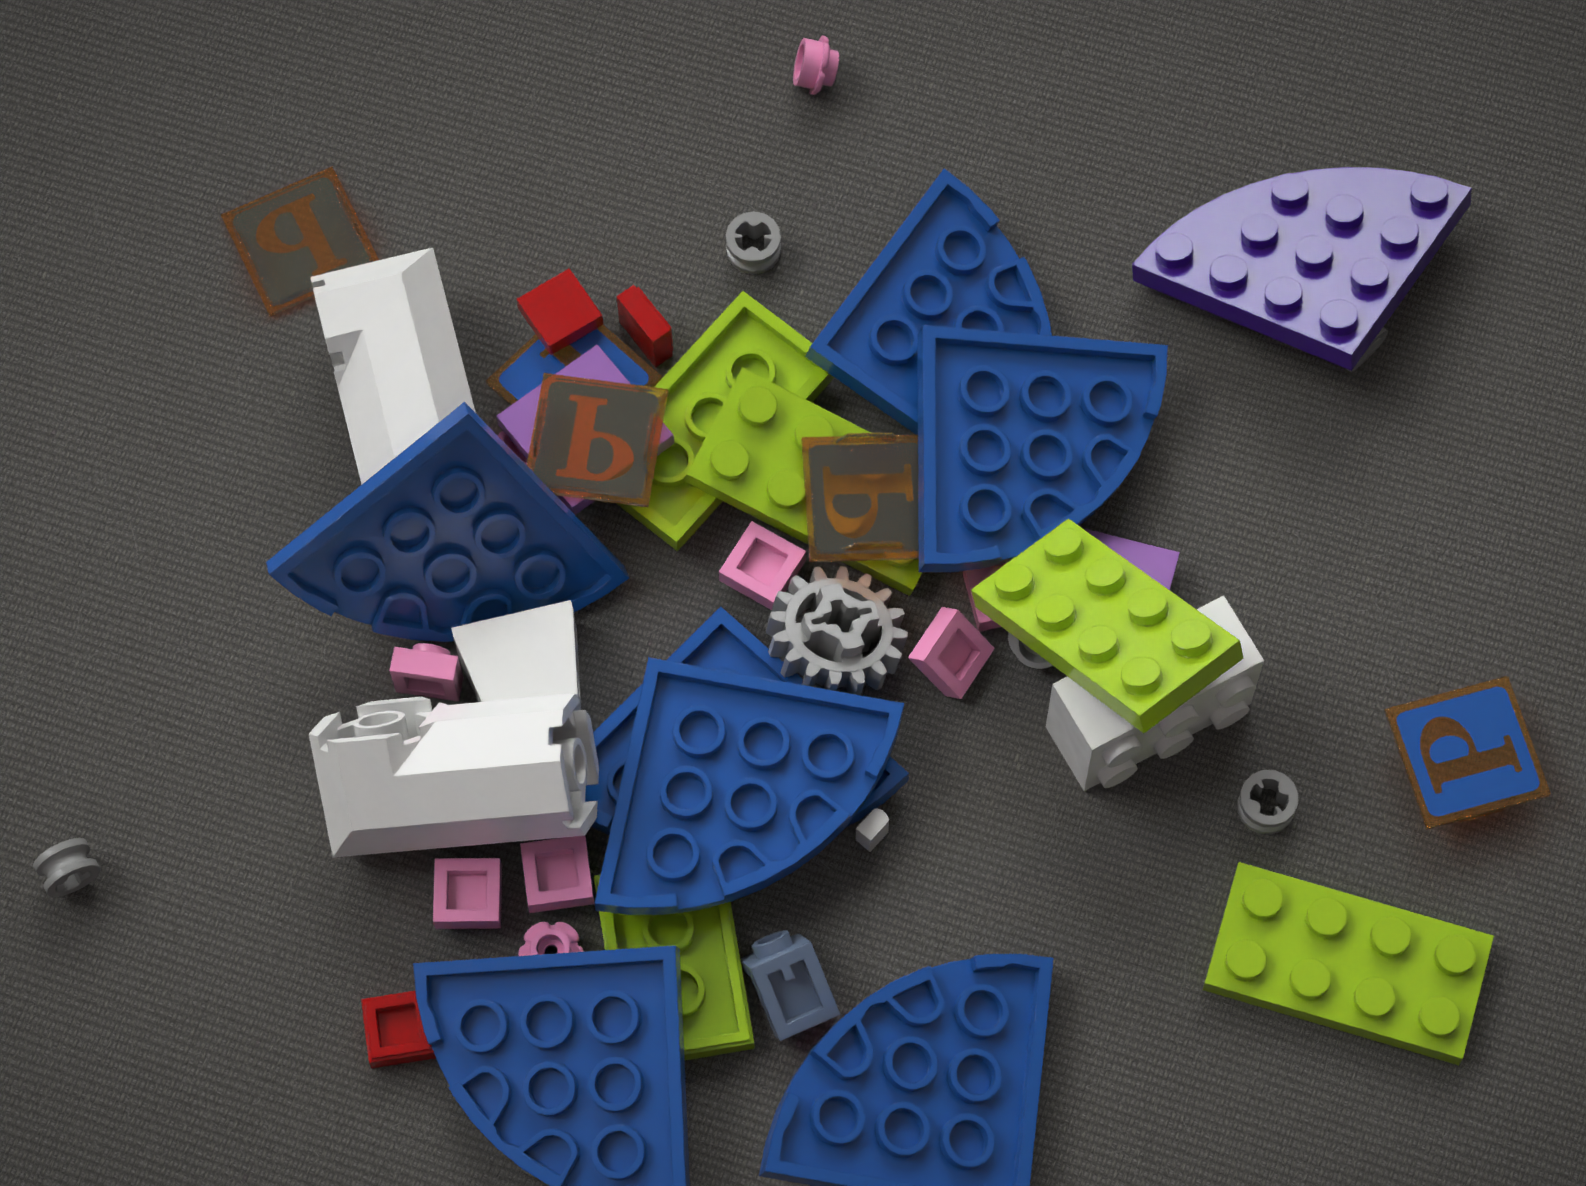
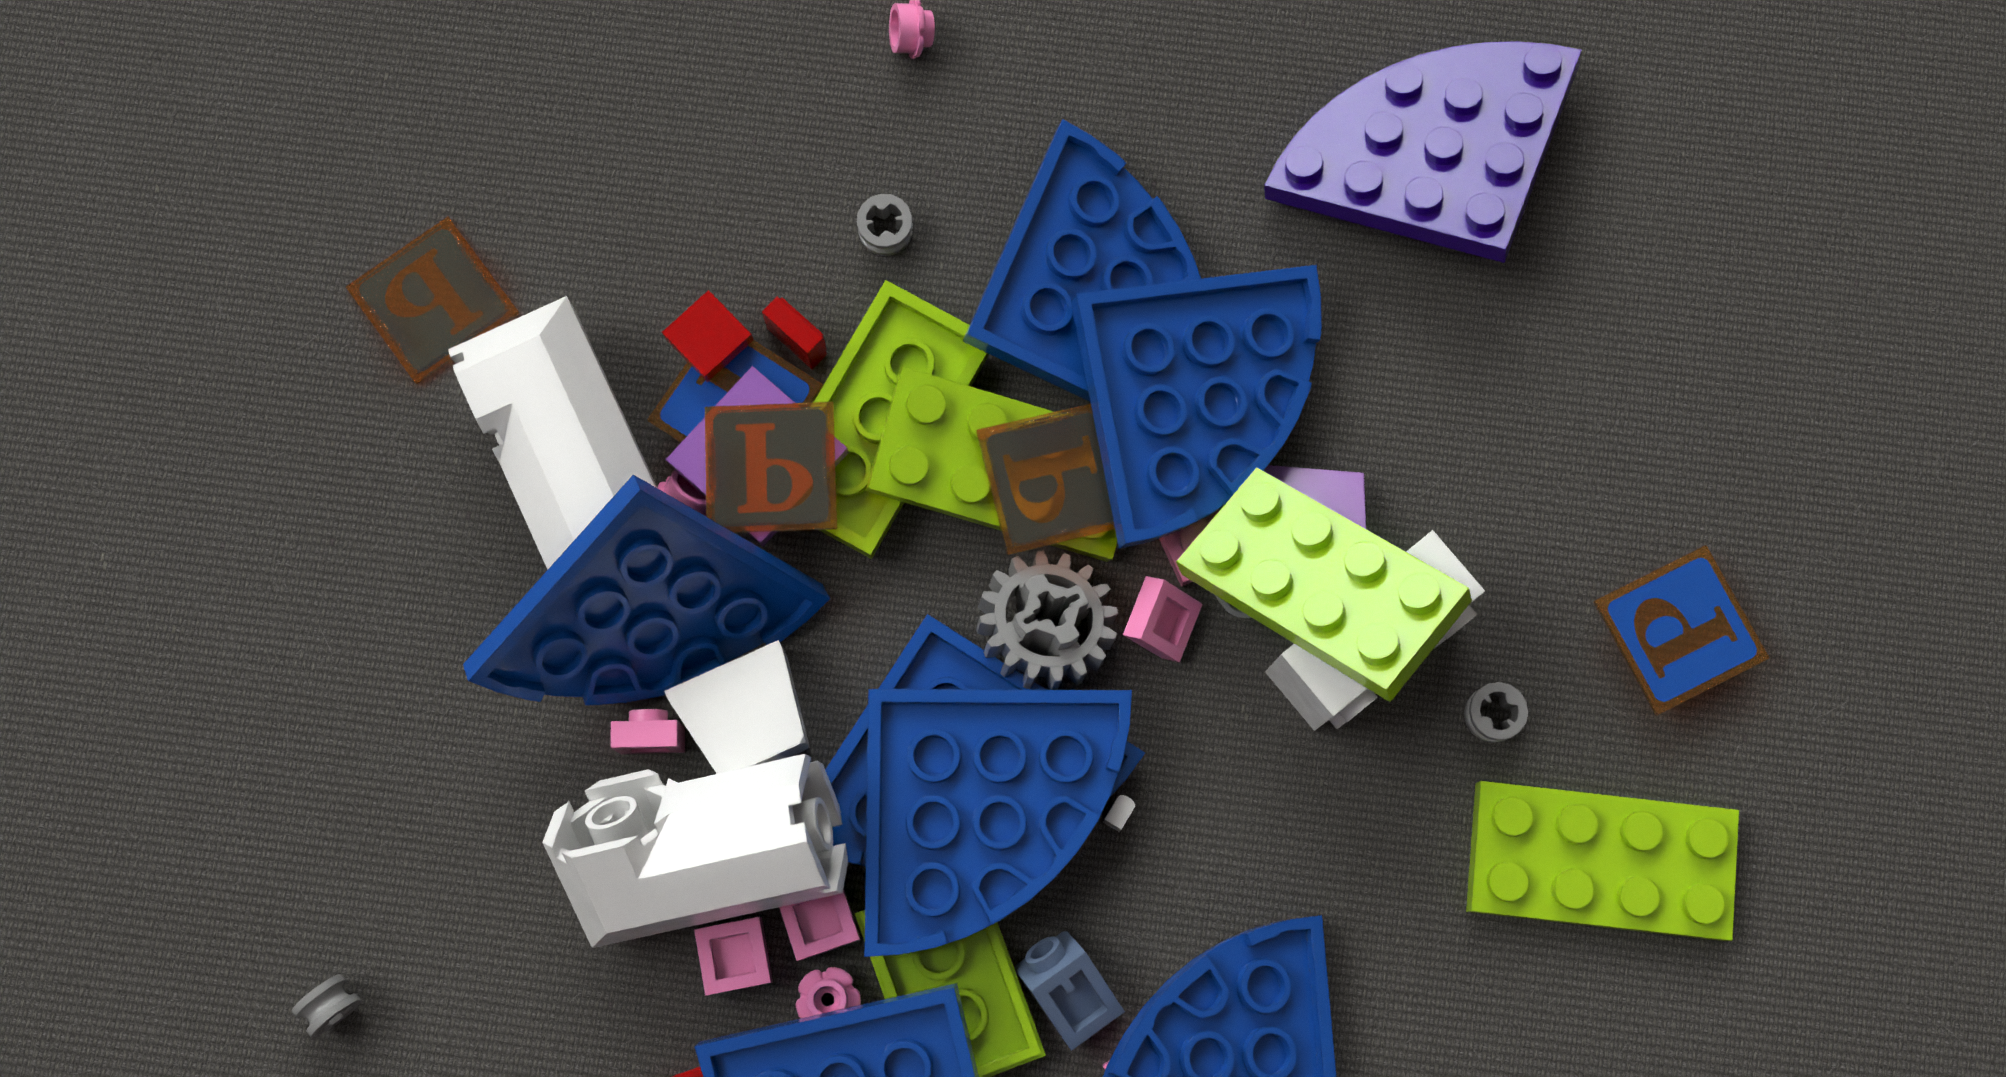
camera: 15 degrees left, 10 degrees up
(762, 565) = (959, 561): bright pink plate -> none

